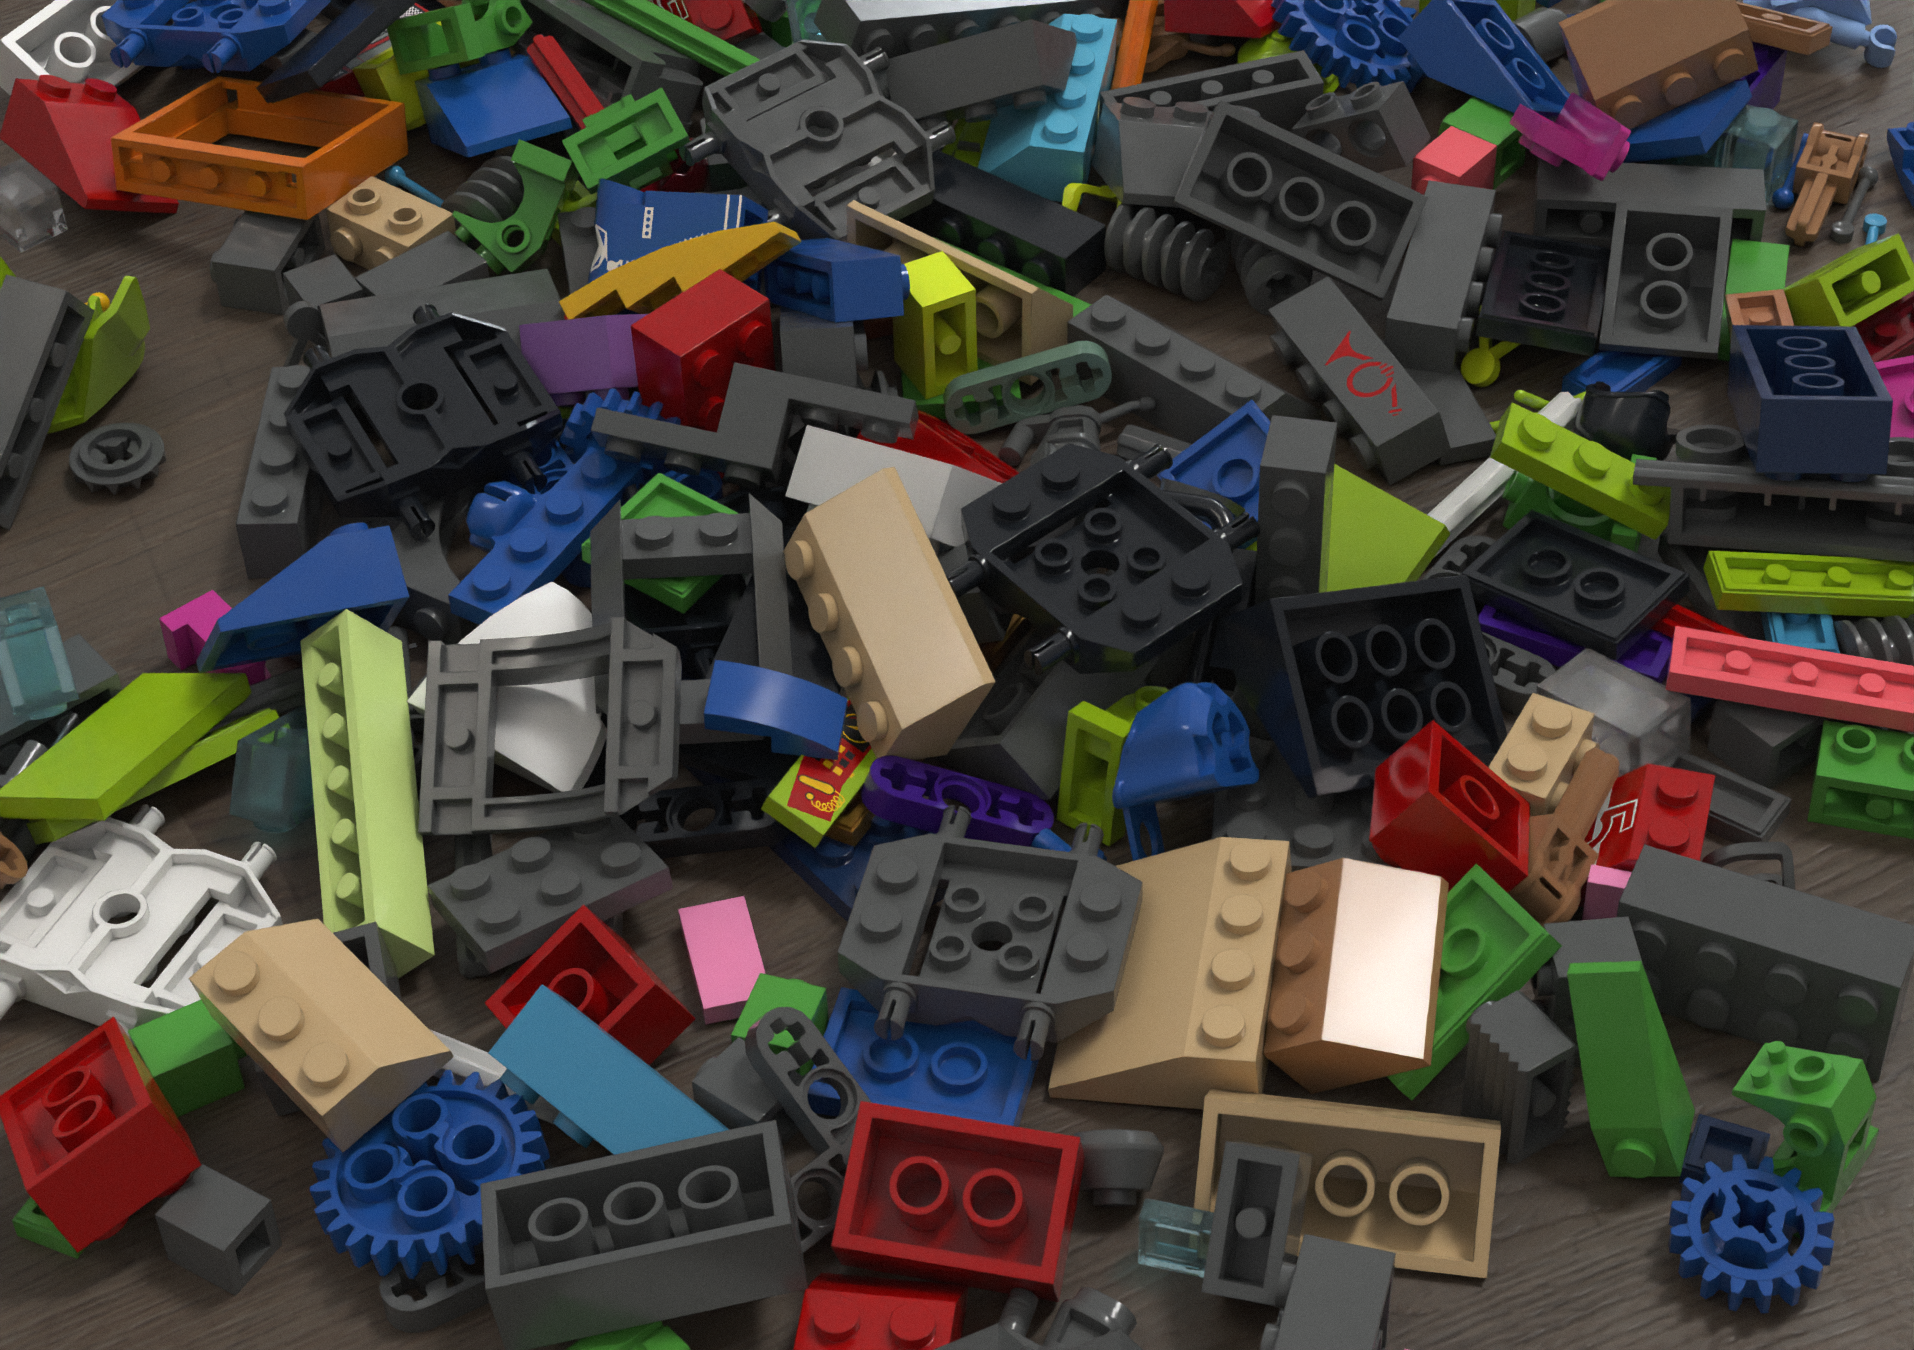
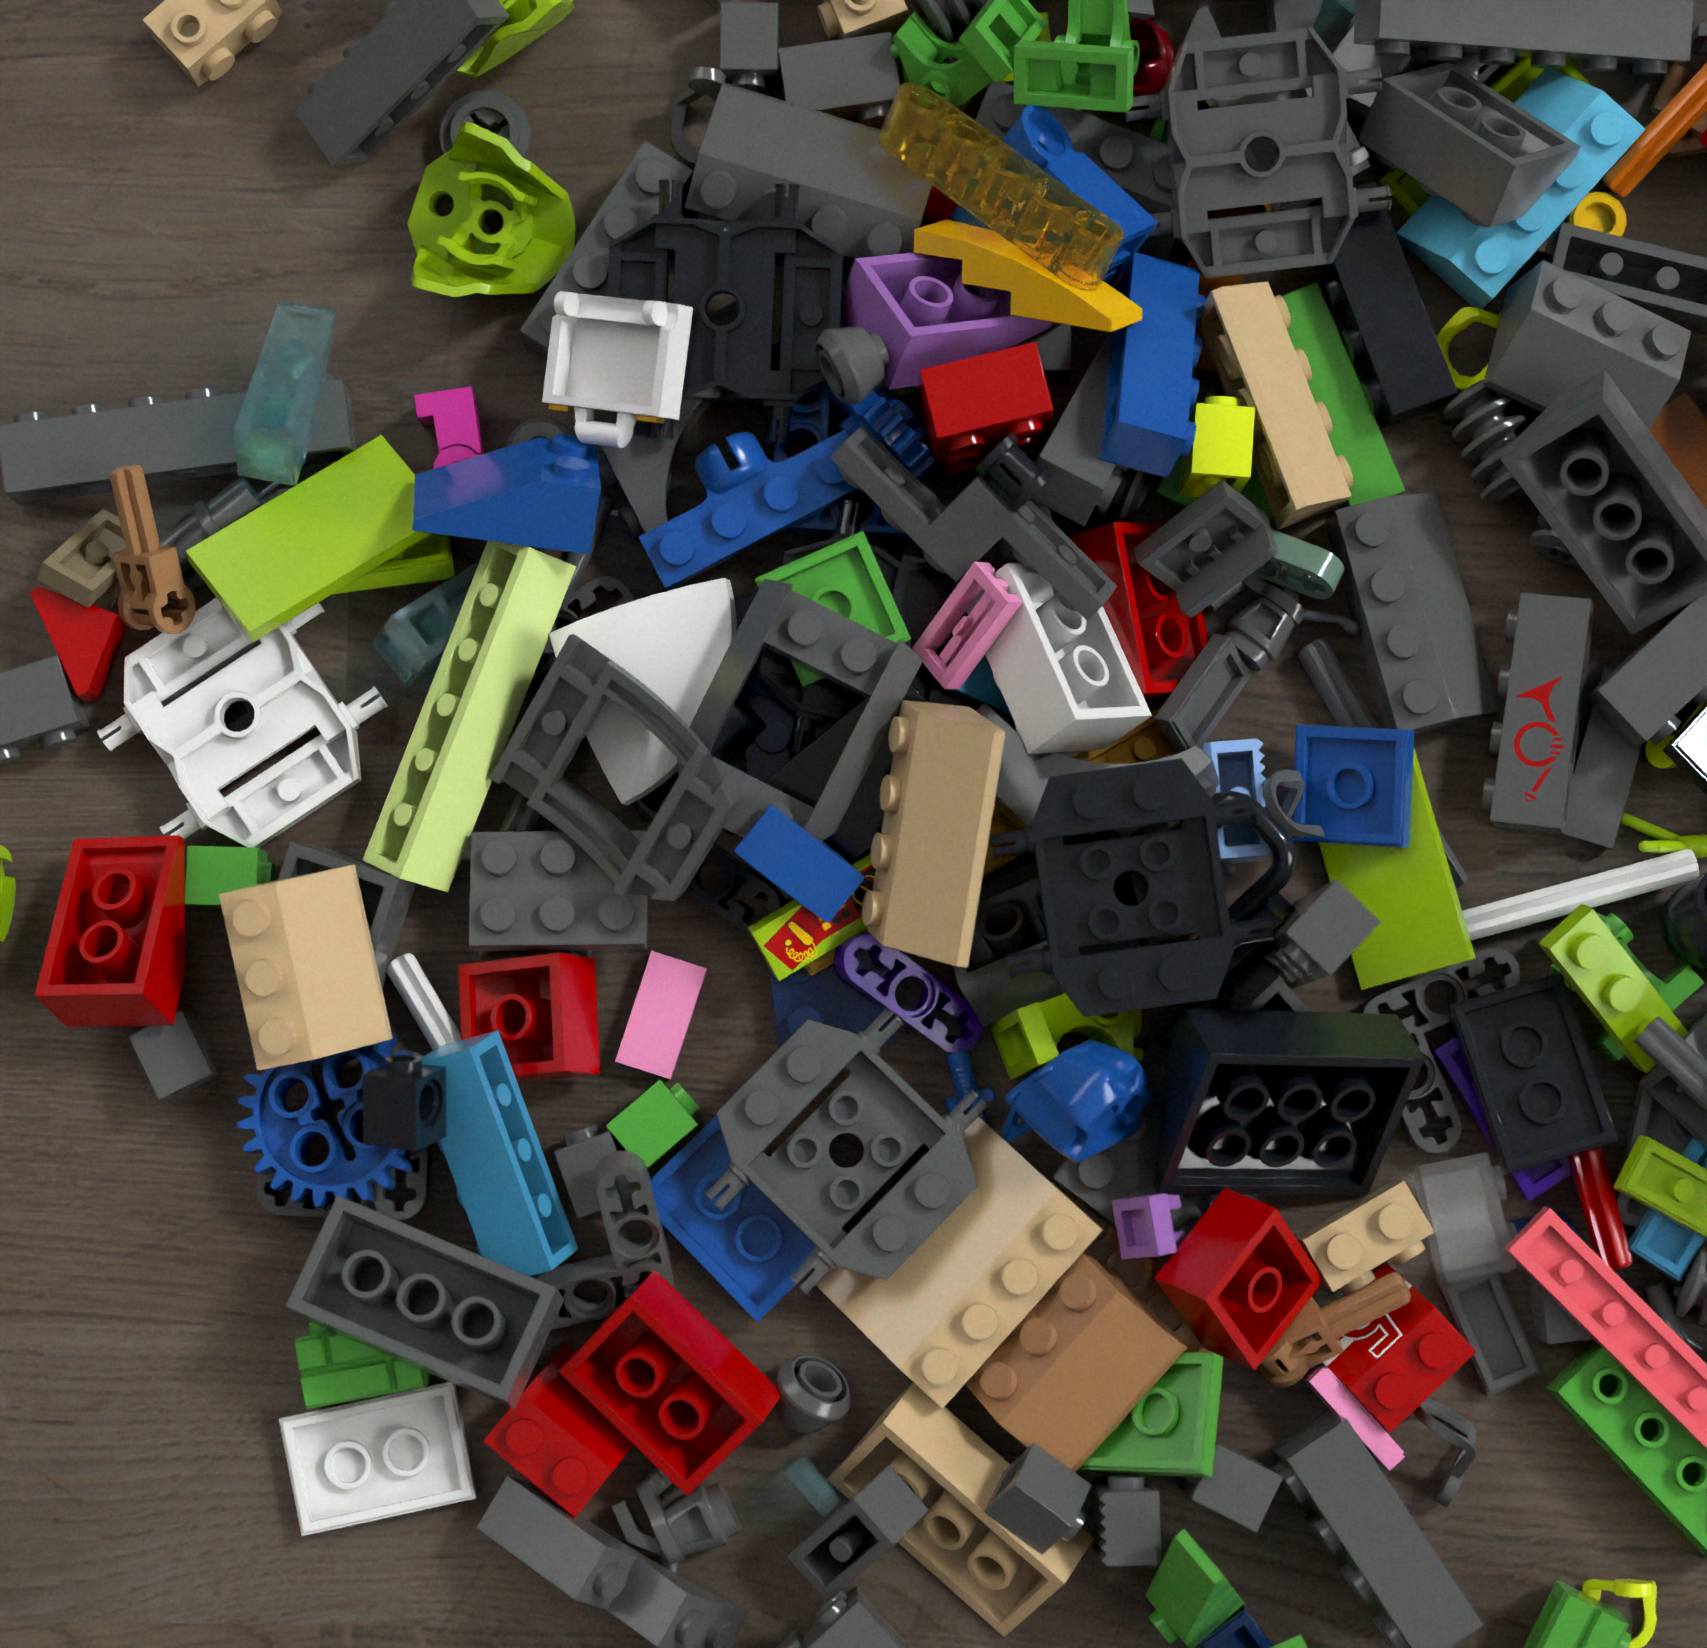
camera: 25 degrees right, 40 degrees up
(152, 468) = (484, 179): none -> lime piece
(343, 466) = (618, 360): none -> white piece
(502, 1069) = (404, 1104): none -> black brick
(562, 372) = (851, 362): none -> dark grey cone
(609, 222) = (1000, 187): none -> clear yellow beam
(765, 345) = (1014, 472): none -> black bush
(817, 479) = (973, 632): none -> bright pink tile
(976, 374) = (1208, 547): none -> dark grey bracket
(1327, 821) = (1146, 1225): none -> medium lavender tile
(1416, 1079) = (1039, 1500): none -> dark grey brick

